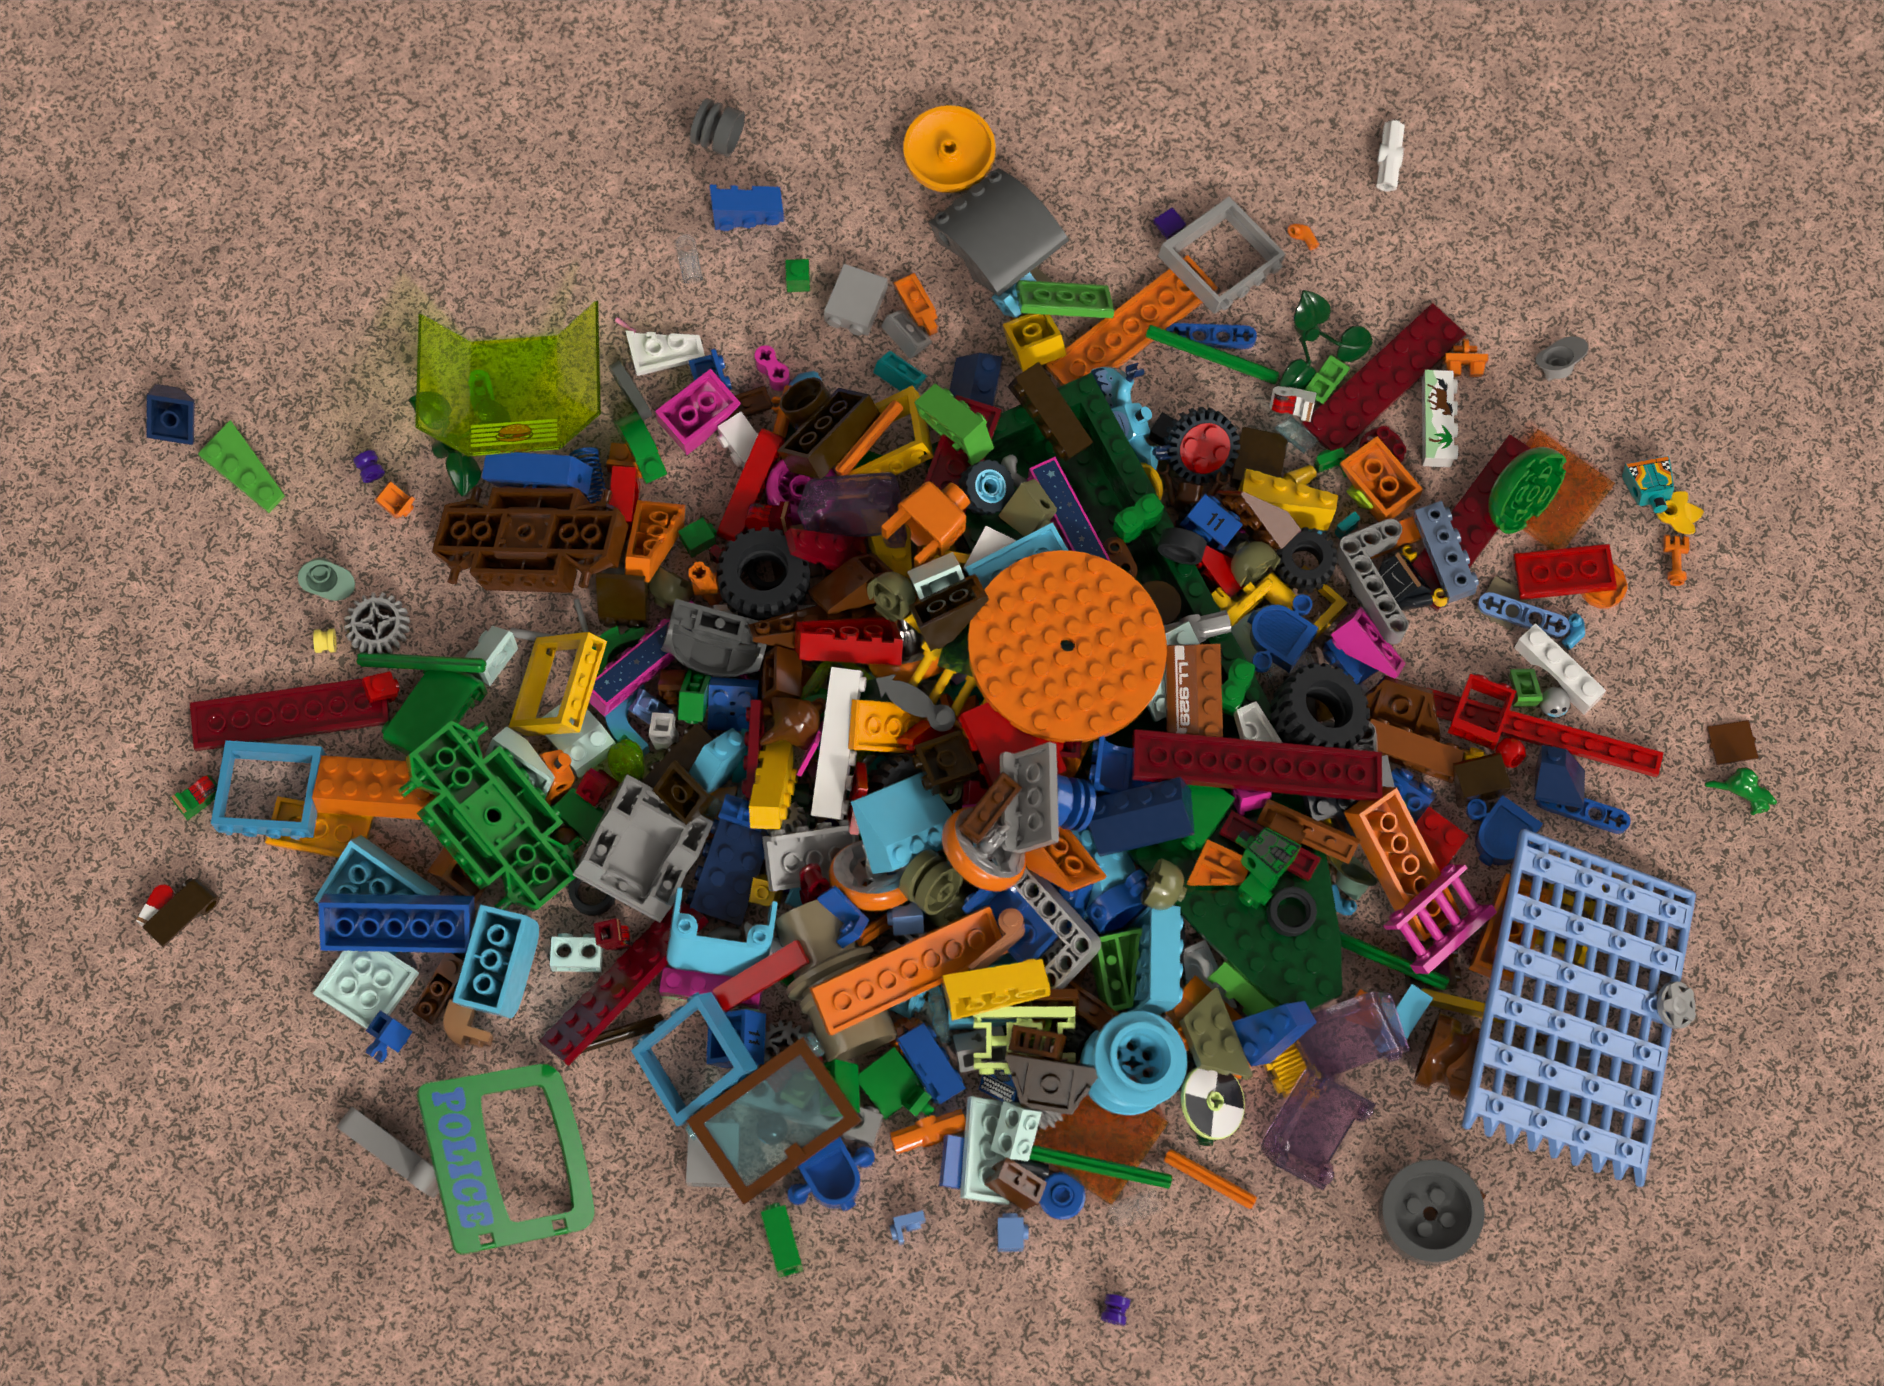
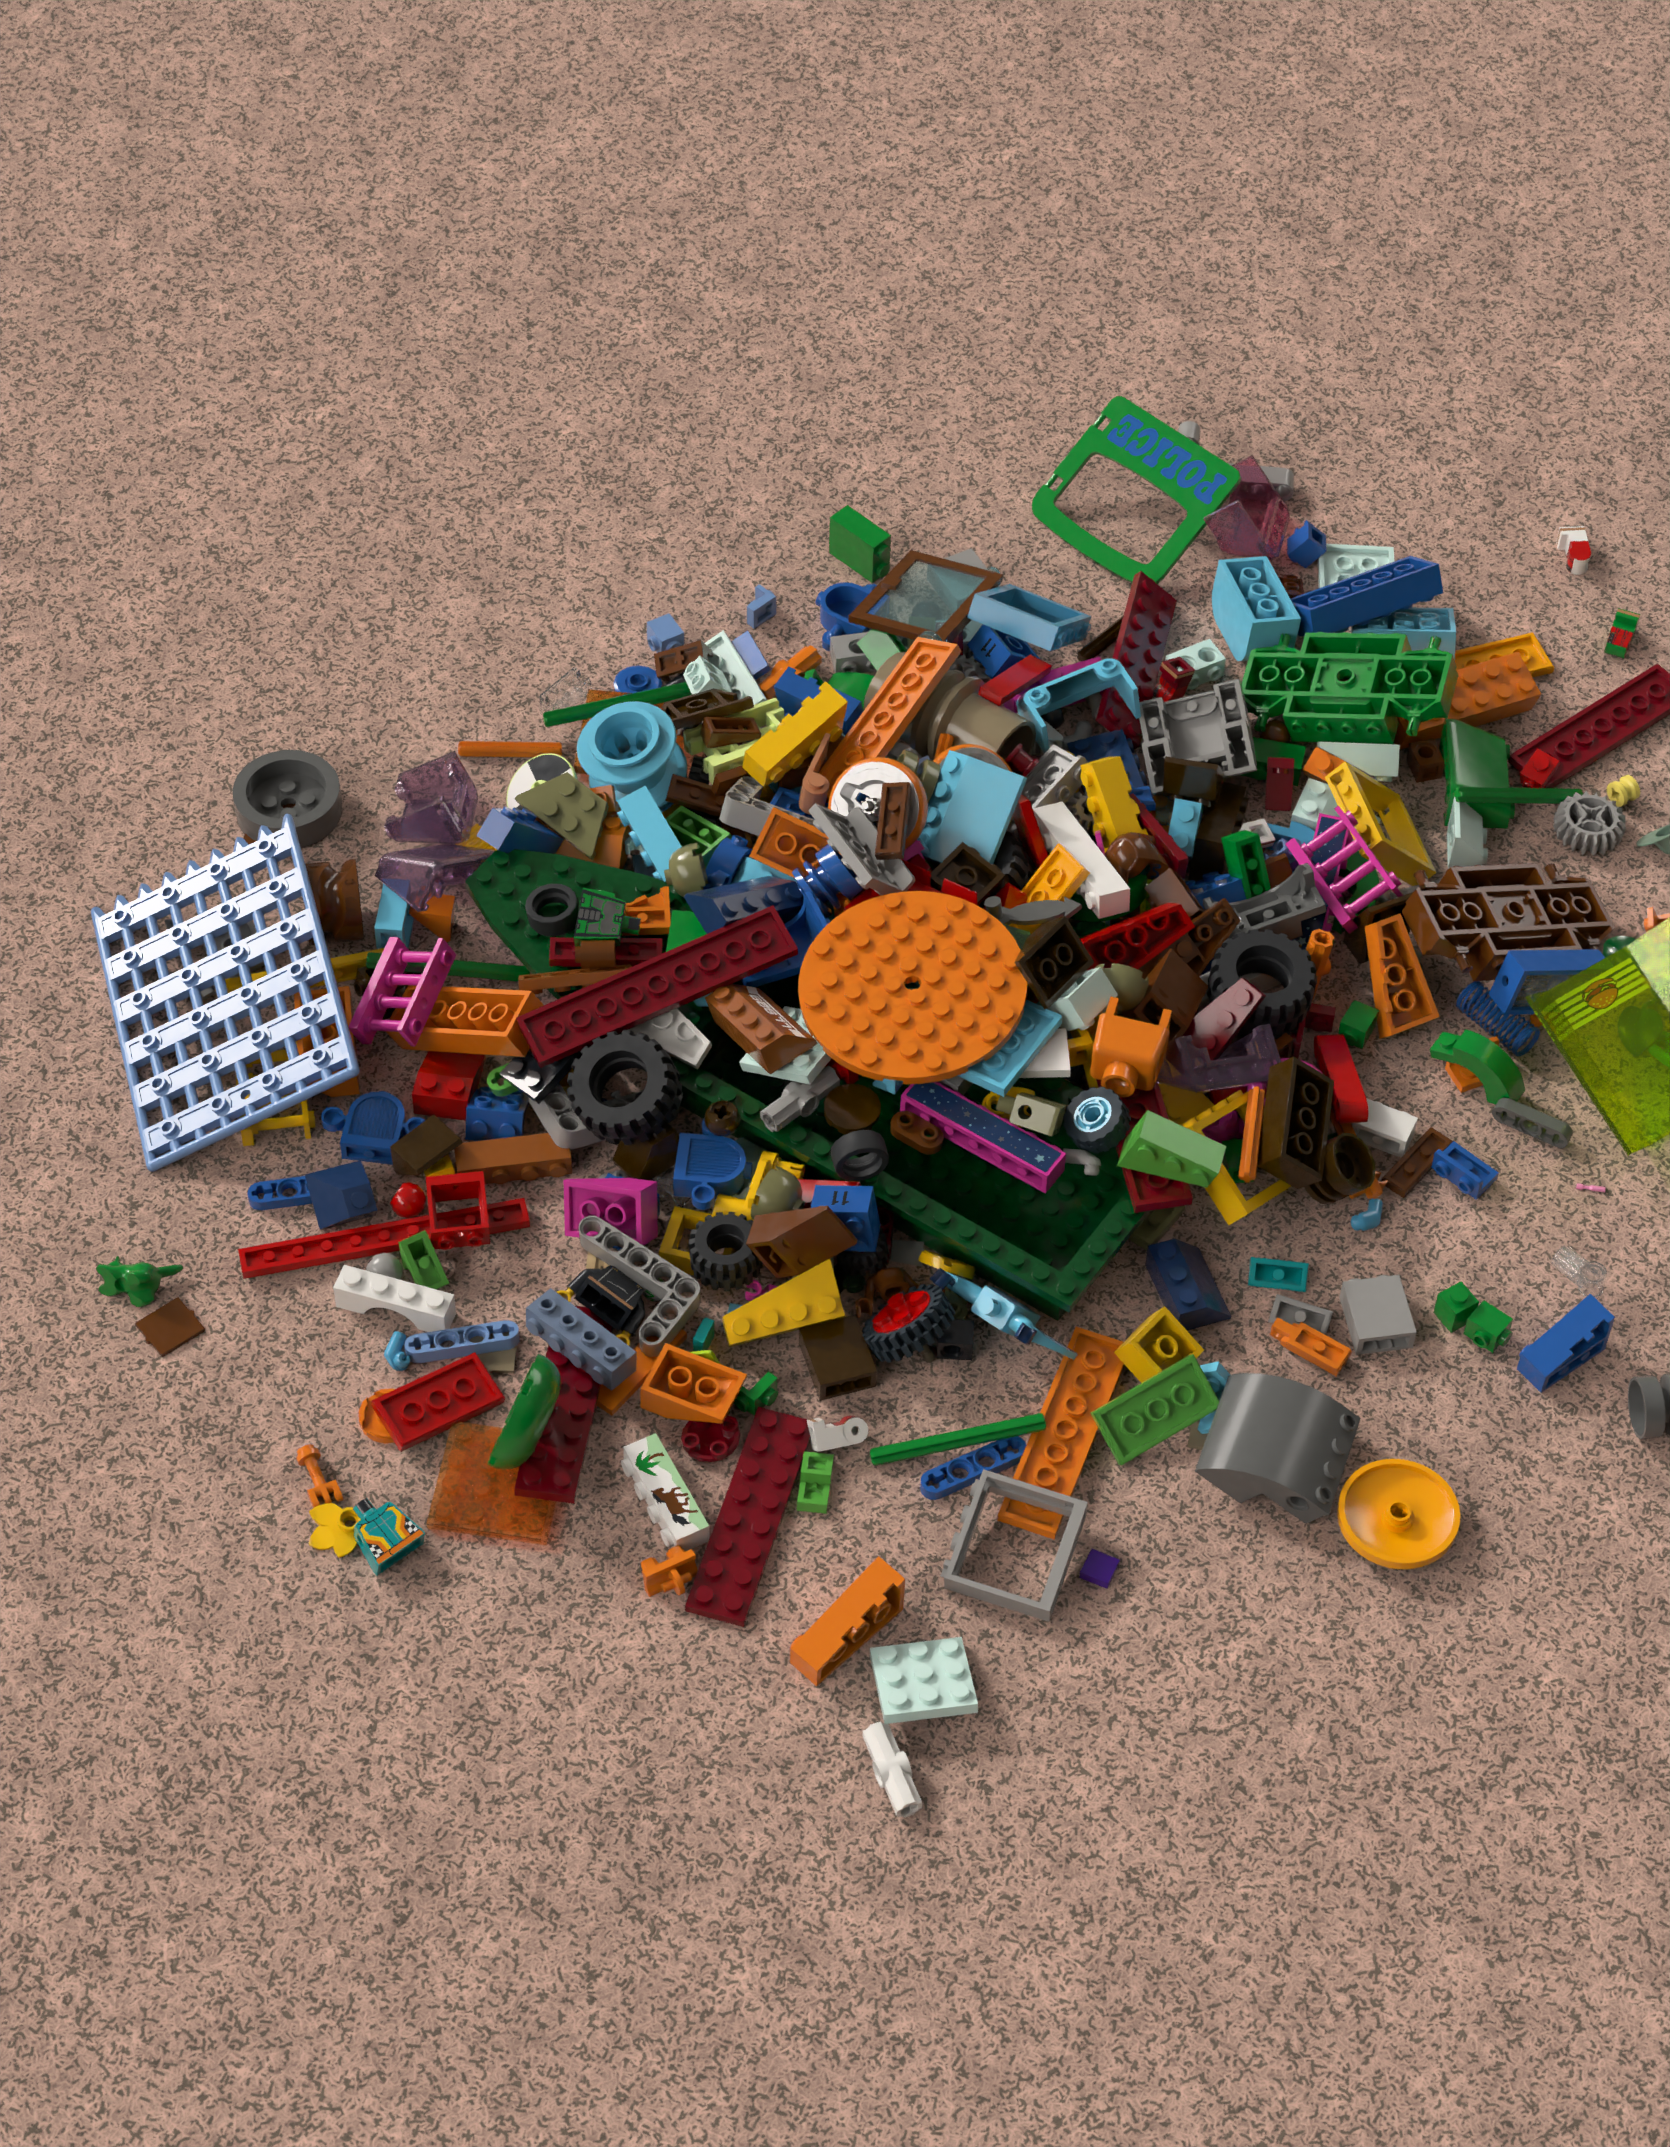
camera: 150 degrees right, 20 degrees down
(186, 905) = (1553, 551): dark brown door -> none
(267, 752) = (1579, 690): dark azure window -> none
(423, 1061) = (1254, 517): none -> clear pink windscreen
(625, 492) = (1454, 1004): red window -> none
(625, 759) = (1268, 807): clear neon green piece -> none
(652, 628) = (1332, 893): none -> dark pink fence
(660, 352) = (1532, 1175): white wing -> none
(668, 587) = (1349, 969): olive cylinder -> none
(697, 411) = (1450, 1117): dark pink slope -> none
(769, 516) = (1300, 1044): leg -> none
(772, 368) = (1407, 1207): dark pink axle -> none
(784, 247) = (1488, 1327): none -> green brick
(841, 907) = (958, 727): blue bracket -> none
(1050, 412) = (1086, 1222): dark brown wedge -> none
(1112, 1313) = (538, 624): dark purple wheel -> none
(1140, 517) = (922, 1169): green brick -> none
(1236, 685) = (724, 1063): green brick -> none
(1255, 642) = (724, 1110): none -> dark brown piece
(1296, 434) = (813, 1394): clear light blue piece -> none
(1301, 475) = (786, 1359): yellow cone -> none
(1303, 233) = (946, 1630): orange arm -> none
(1316, 310) = (864, 1512): dark green plant -> none
(1337, 200) = (923, 1680): none -> light aqua plate
(1365, 260) = (849, 1621): none -> orange wedge
(1404, 706) = (535, 1189): reddish brown wing -> none
(1561, 357) = (559, 1621): light grey piece -> none
(1679, 1005) = (122, 1055): light grey wheel -> none

